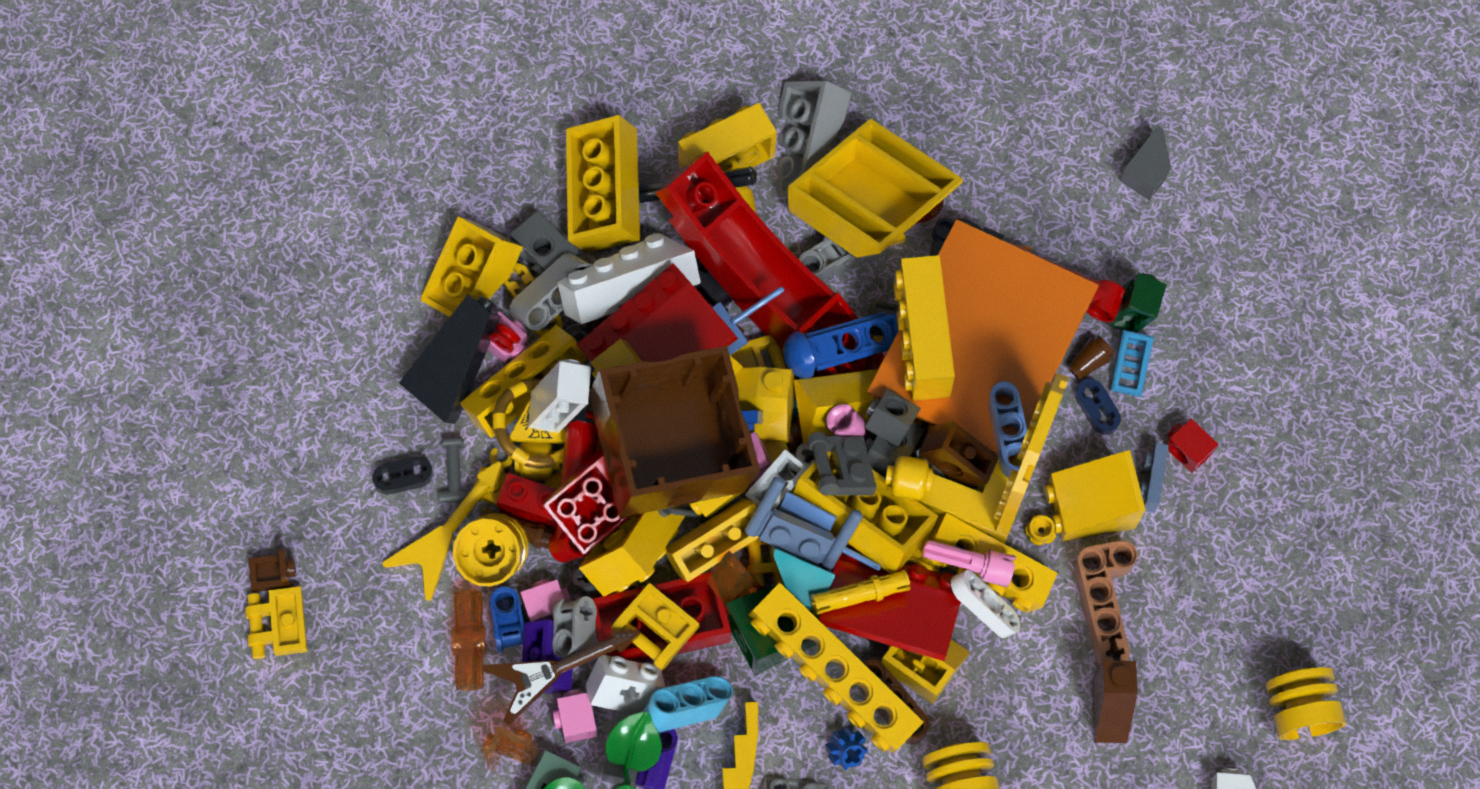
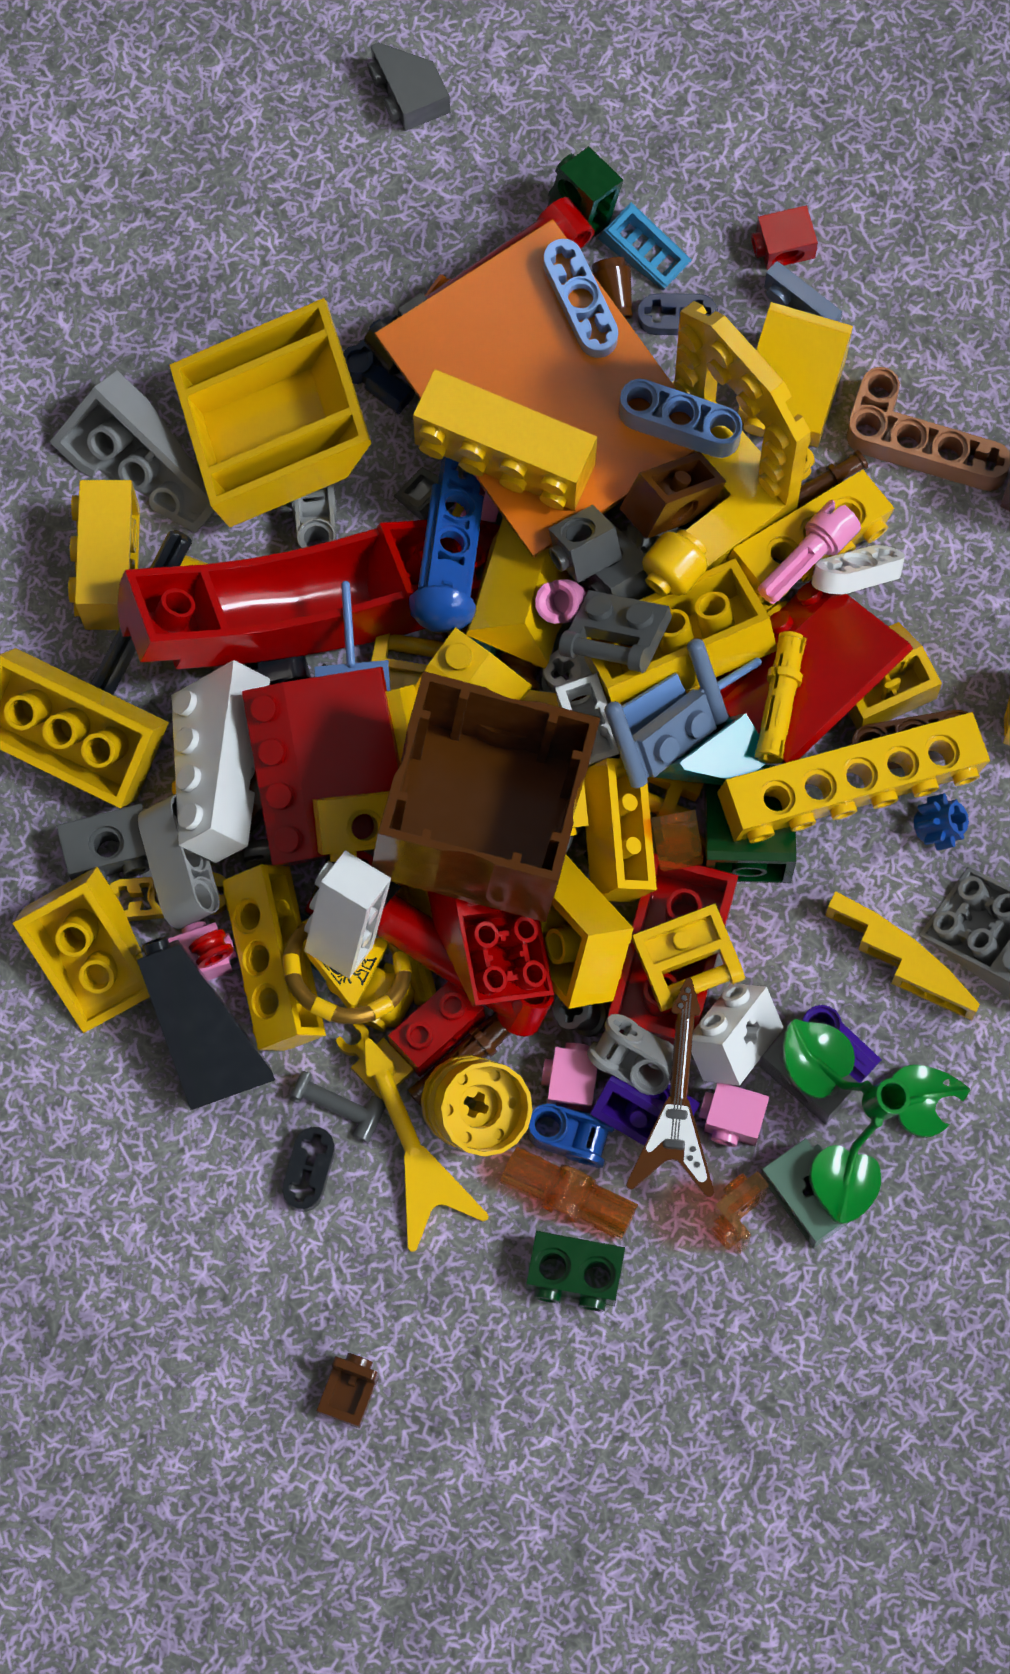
camera: 55 degrees left, 5 degrees up
(287, 622) = (423, 1403): yellow plate -> none
(427, 668) = (578, 1258): none -> dark green brick
(688, 703) = (795, 970): medium azure beam -> none
(1045, 559) = (833, 476): none -> reddish brown piece
(1074, 316) = (603, 320): none -> light blue beam

